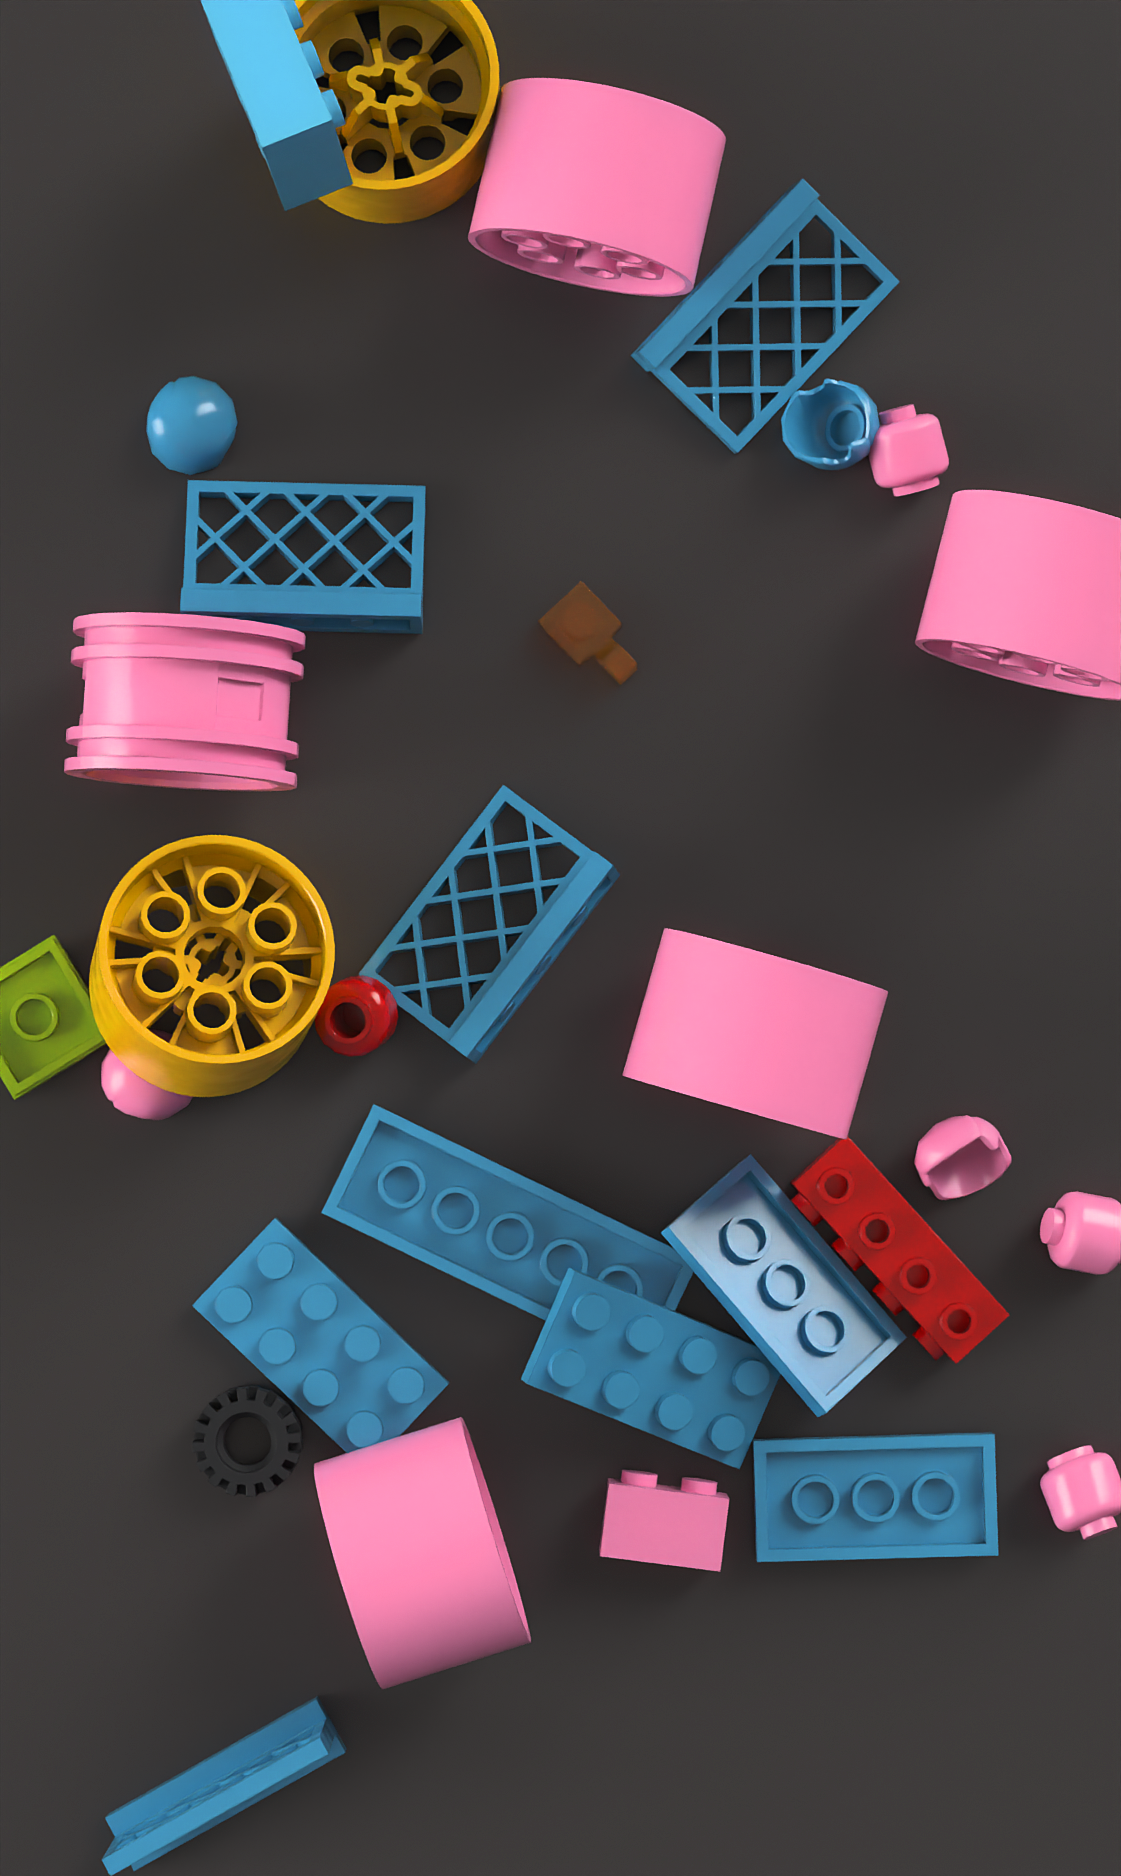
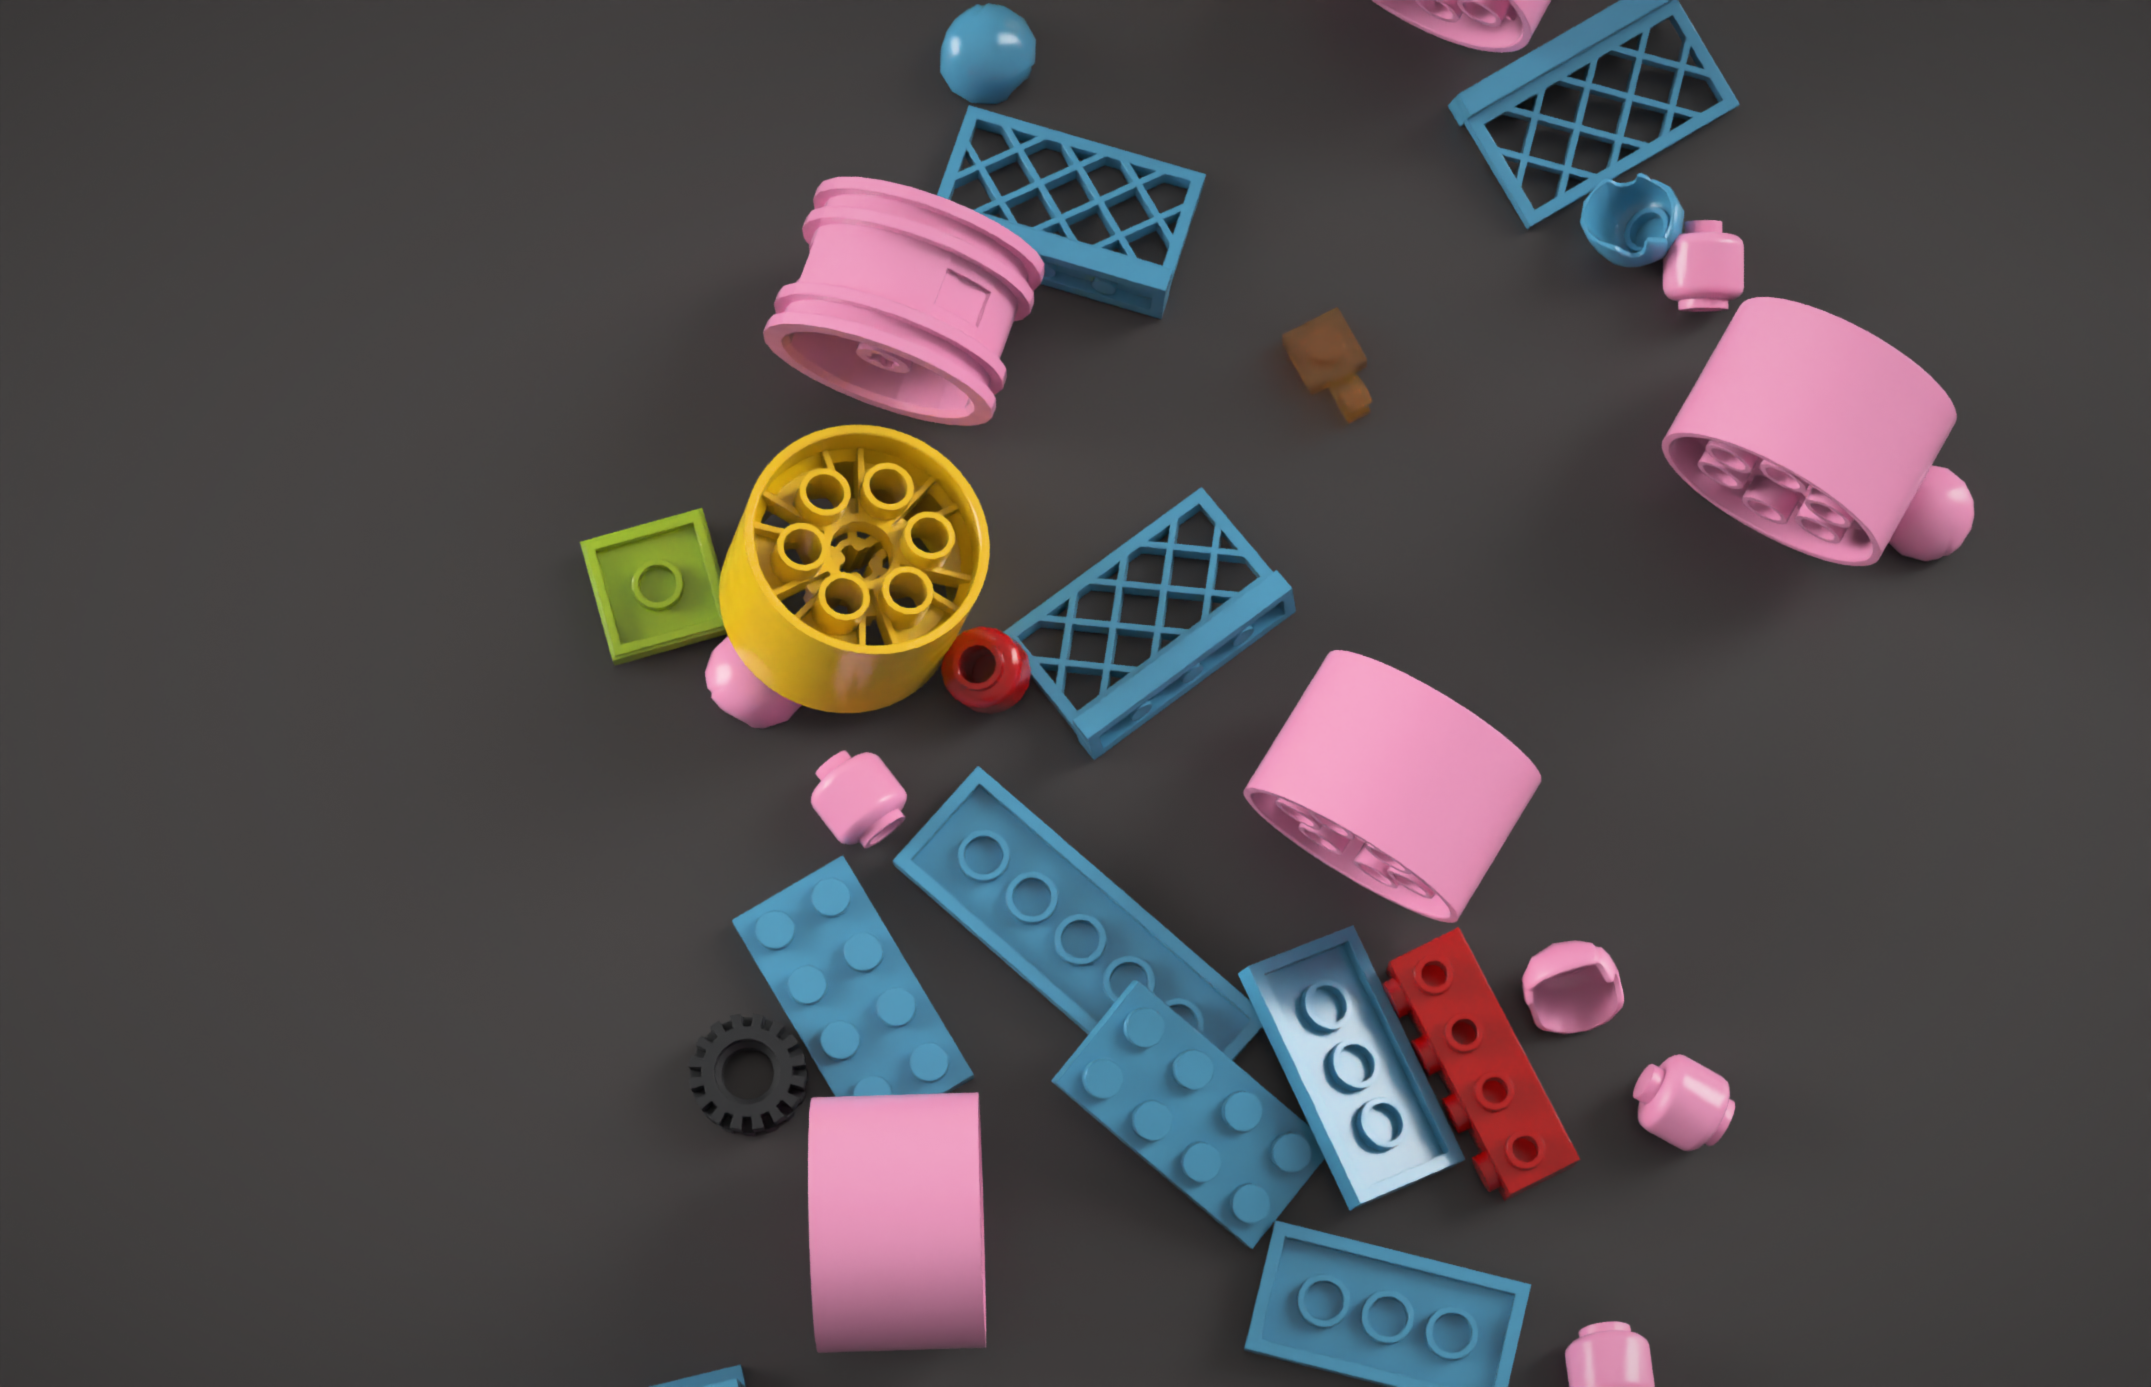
camera: 20 degrees right, 10 degrees down
(274, 1164) = (858, 798): none -> bright pink head
(664, 1522) = (1158, 1279): bright pink brick -> none

